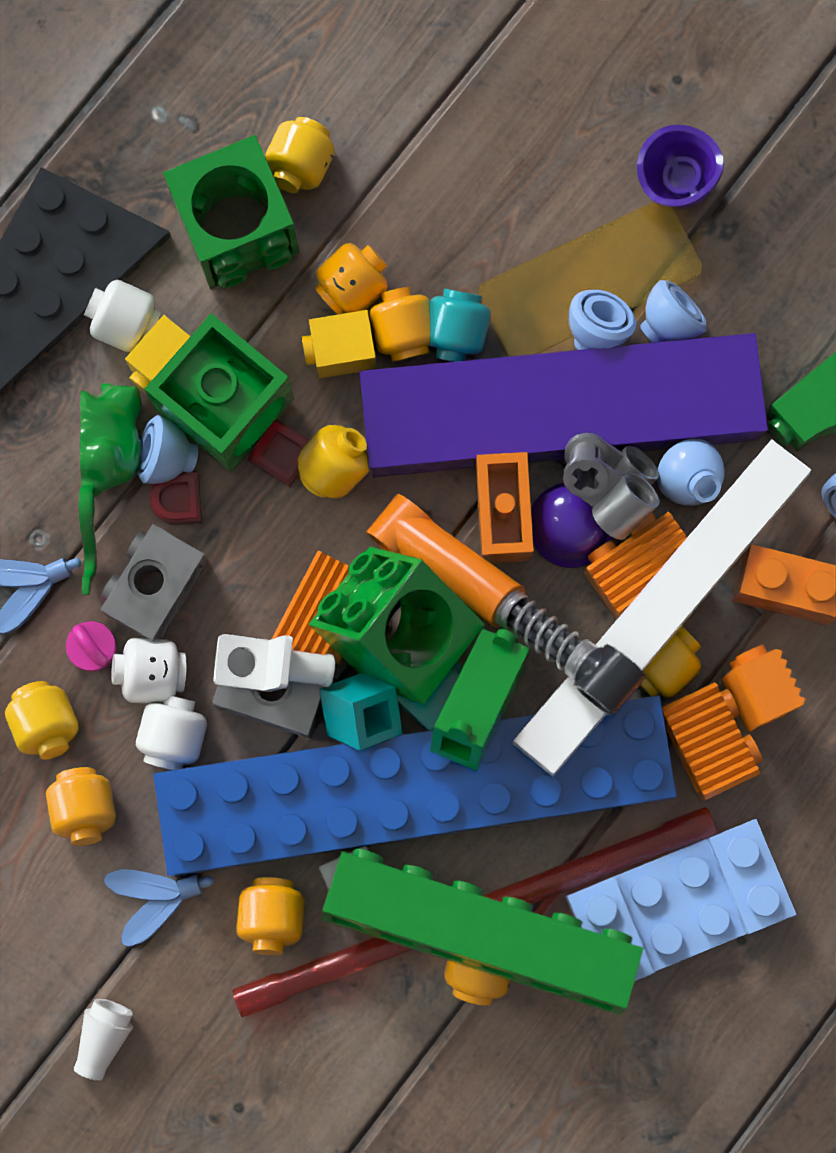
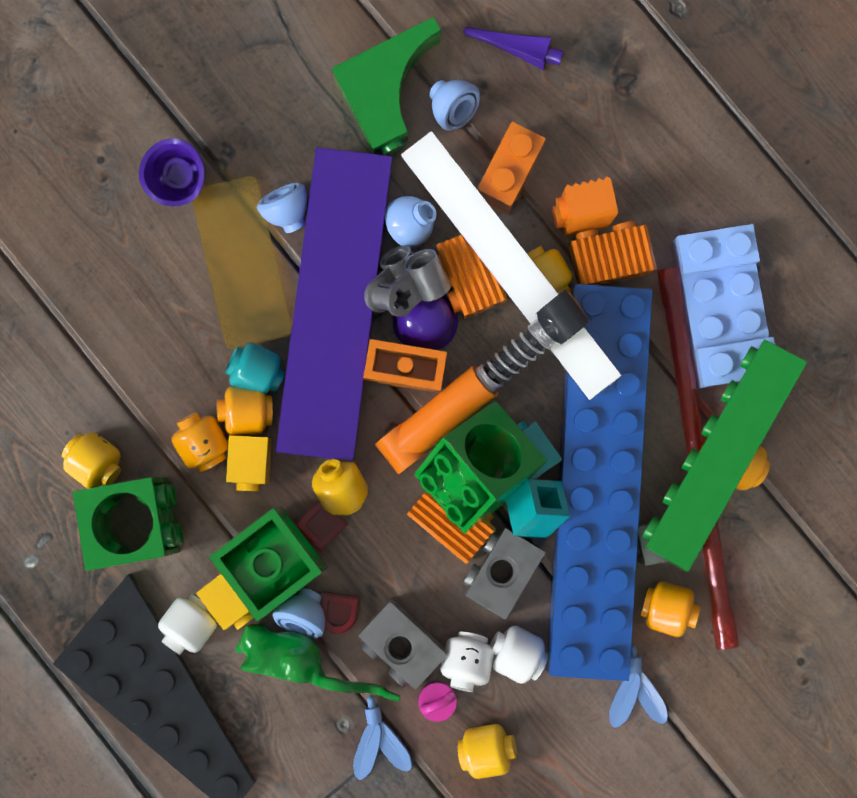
camera: 80 degrees left, 5 degrees up
(80, 805) = (558, 734): light orange head -> none
(102, 1035) = (728, 751): white cone -> none
(274, 664) = (489, 566): white bracket -> none
(479, 698) = (551, 417): green brick -> none
(600, 320) = (278, 261): light blue brick -> none

